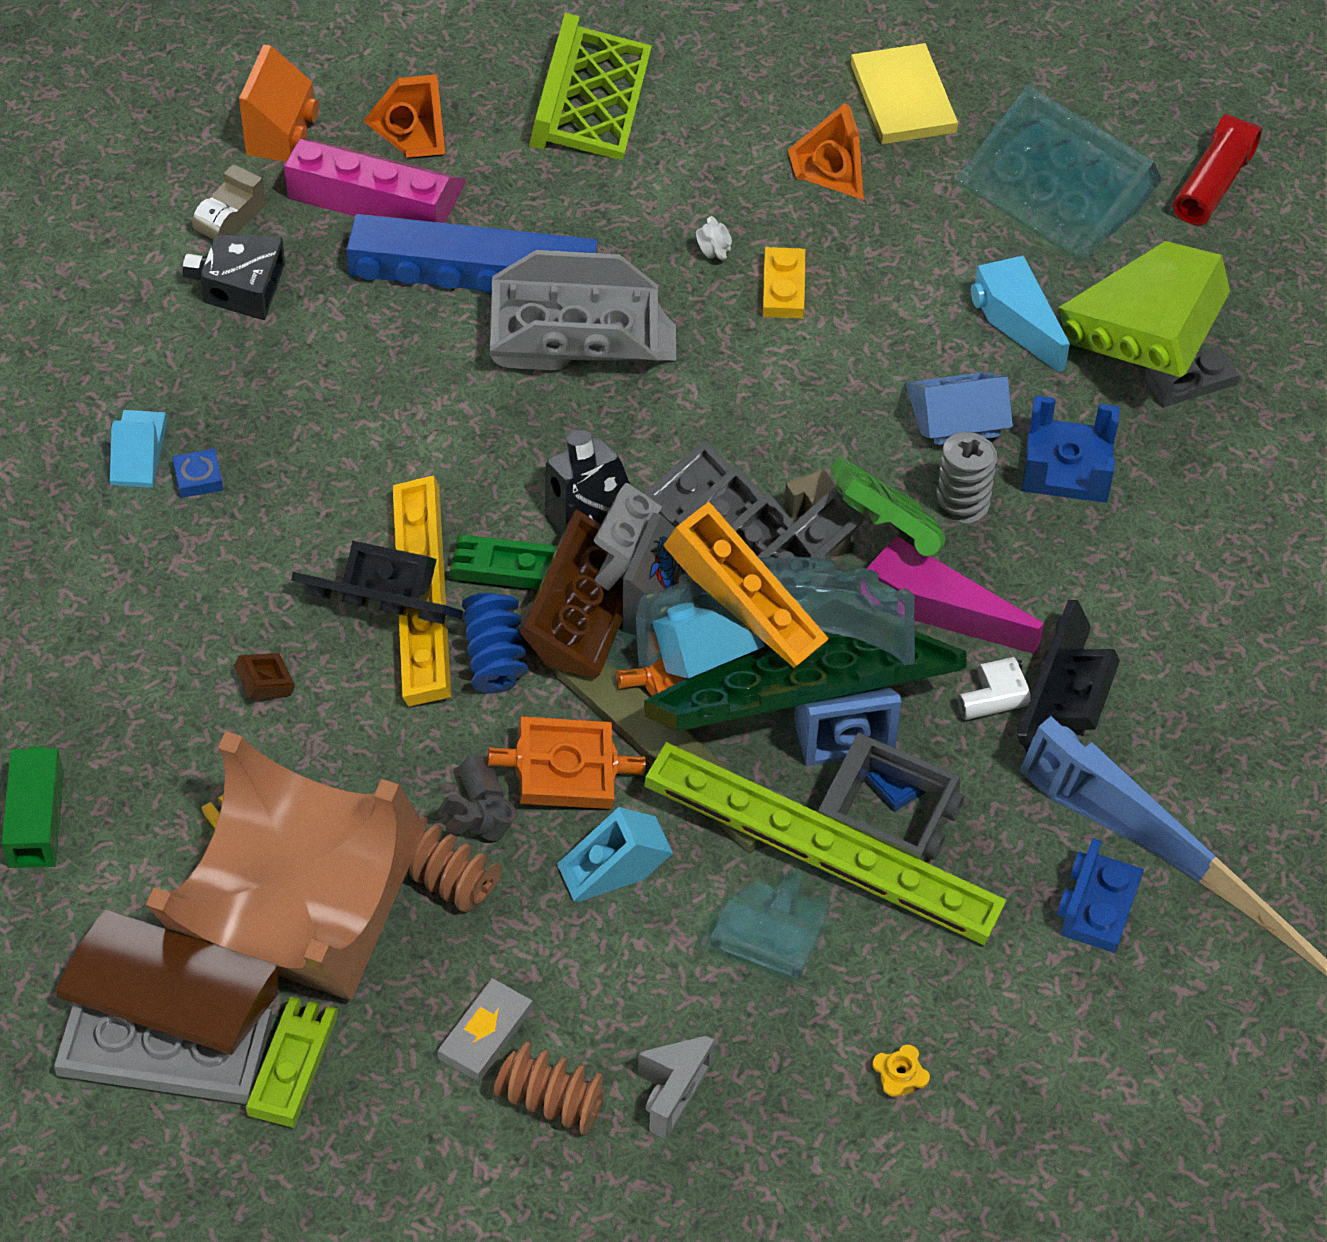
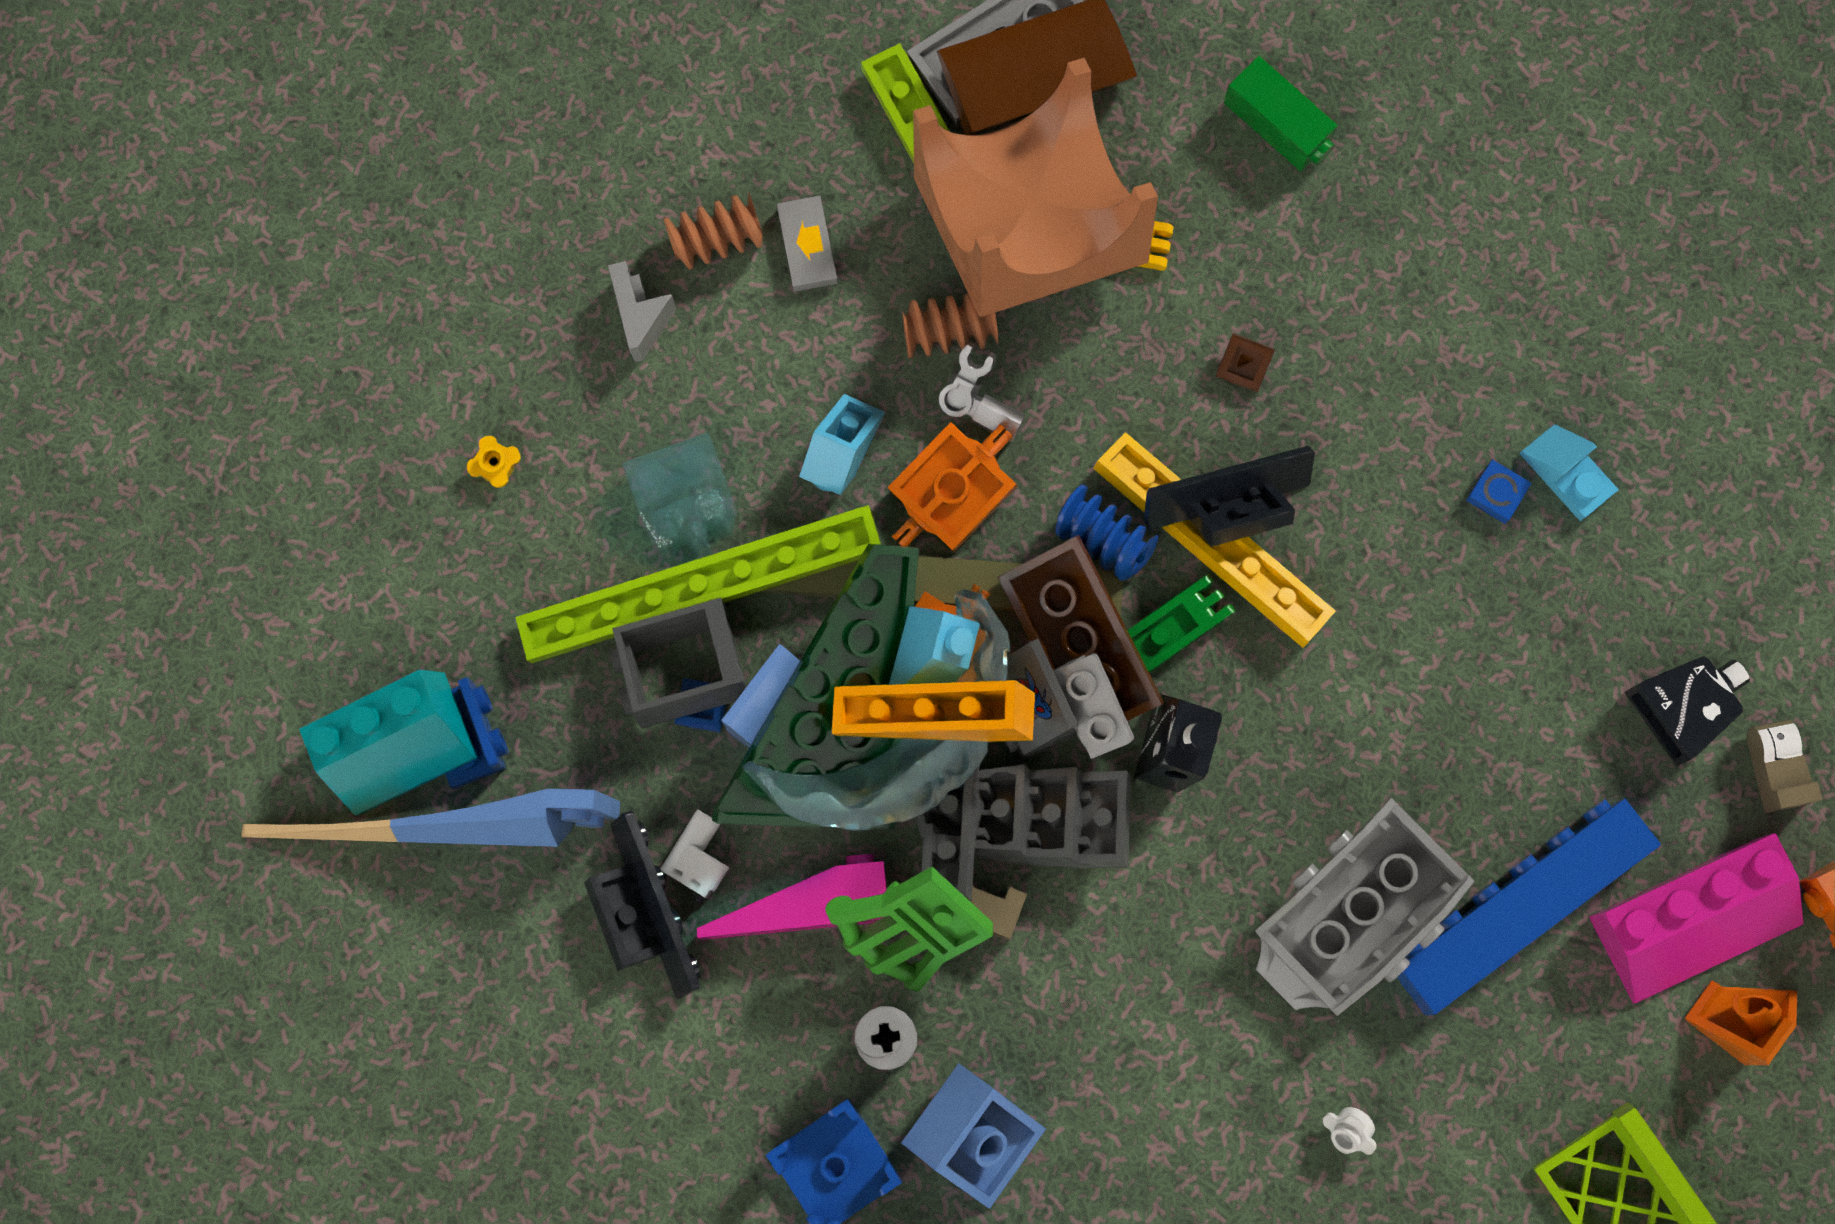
camera: 140 degrees right, 25 degrees up
(784, 282) = (1250, 1145): yellow plate -> none
(1163, 927) = (390, 741): none -> teal slope

